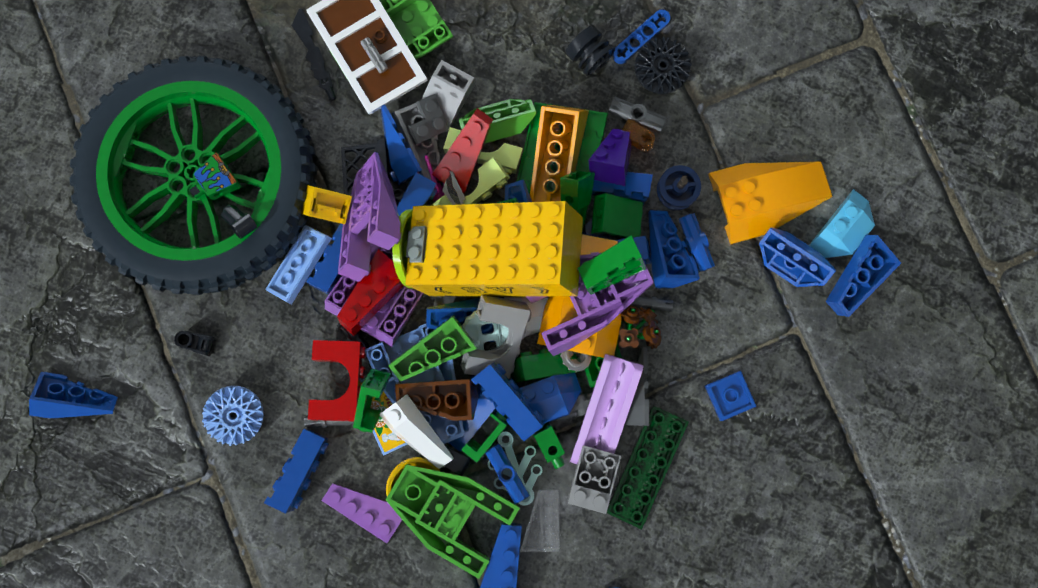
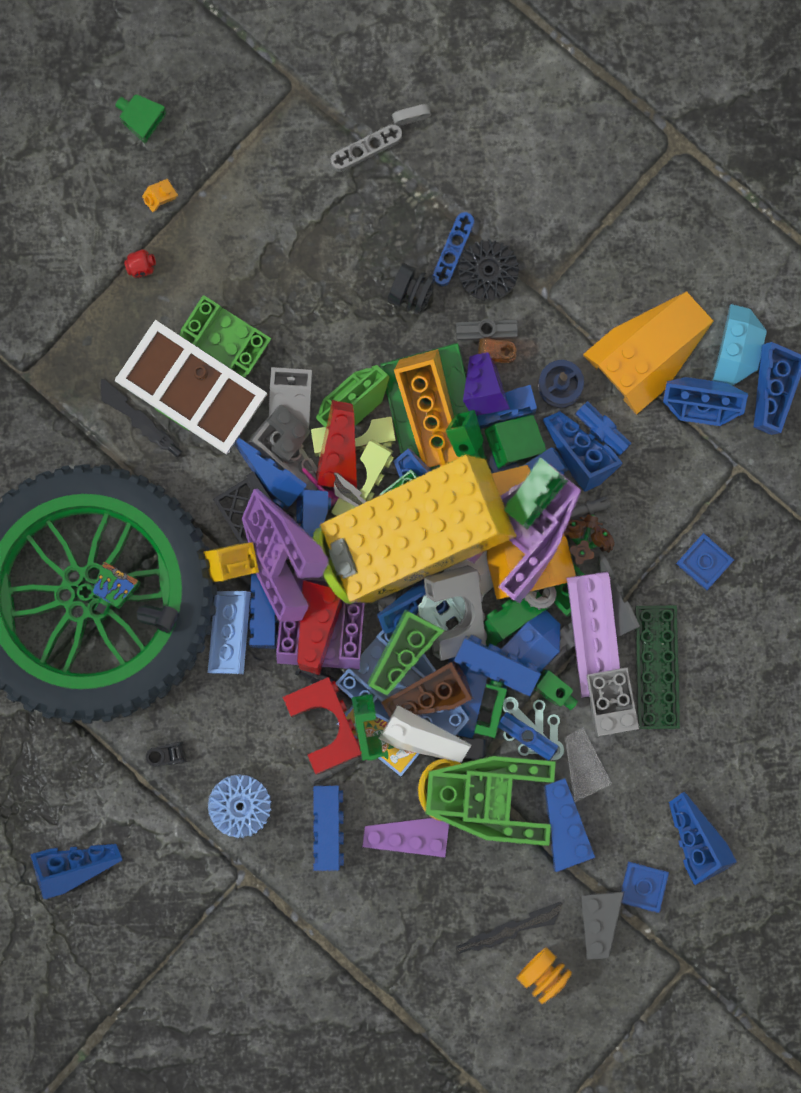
camera: 20 degrees left, 0 degrees up
(374, 55) = (205, 394): light grey axle -> none

